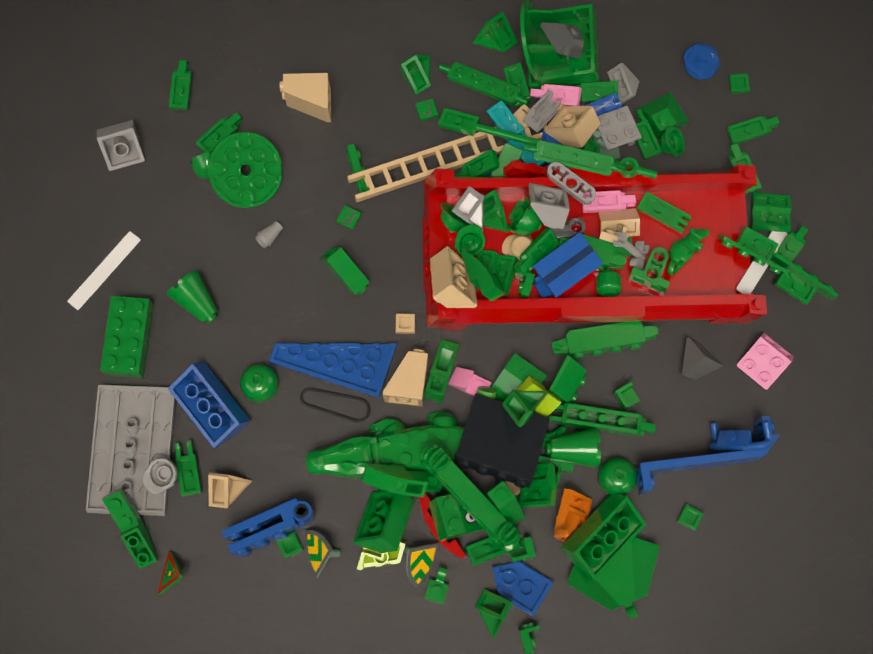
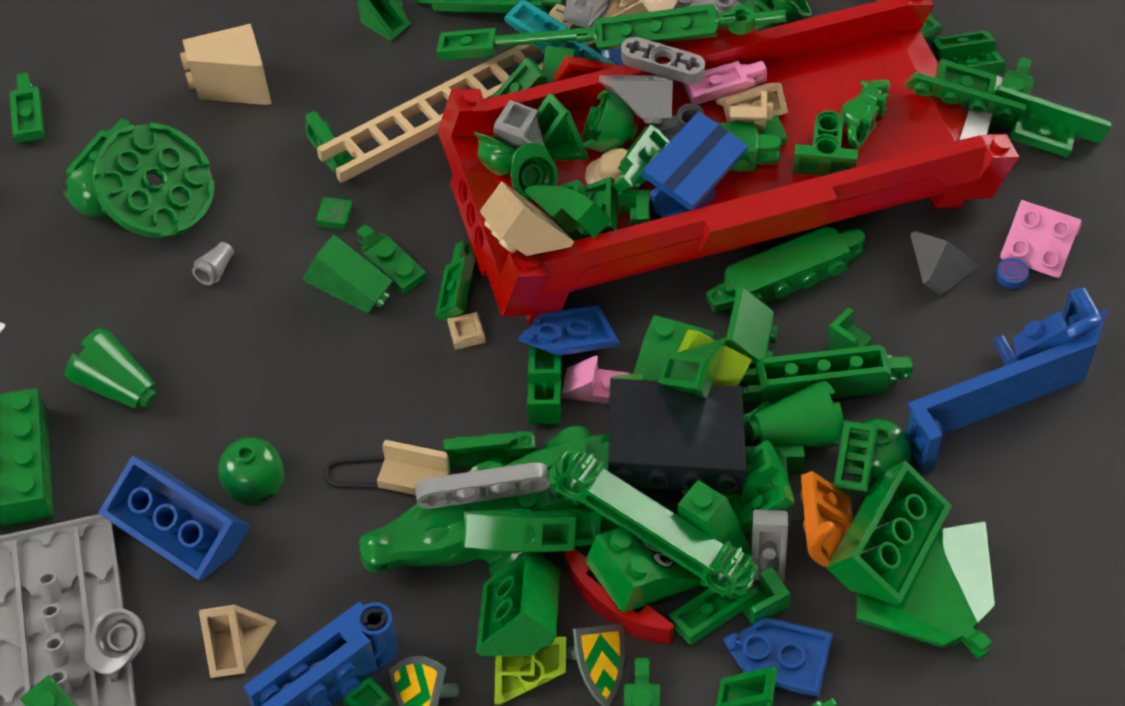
camera: 15 degrees left, 20 degrees down
(187, 470) = (162, 632): green hinge -> none
(344, 364) = (390, 407): blue wing -> none
(349, 413) = (408, 465): none -> tan panel
(373, 261) = (390, 260): none -> green hinge
(381, 447) = (482, 485): none -> light grey beam
(397, 409) = (470, 451): none -> green hinge
(407, 290) = (456, 282): none -> green hinge
(409, 380) = (495, 393): tan slope -> none
(426, 110) = (413, 53): green tile -> none
(464, 346) = (570, 331): none -> blue tile
(534, 521) = (769, 541): none -> light grey slope
(593, 496) = (841, 469): none -> green slope
(608, 283) = (764, 175): green head -> none
(637, 251) = (789, 124): light grey bar -> none
(664, 212) = (813, 74): green hinge -> none
(690, 517) = (1016, 481): green tile -> none
(739, 379) = (1012, 273): none -> blue tile

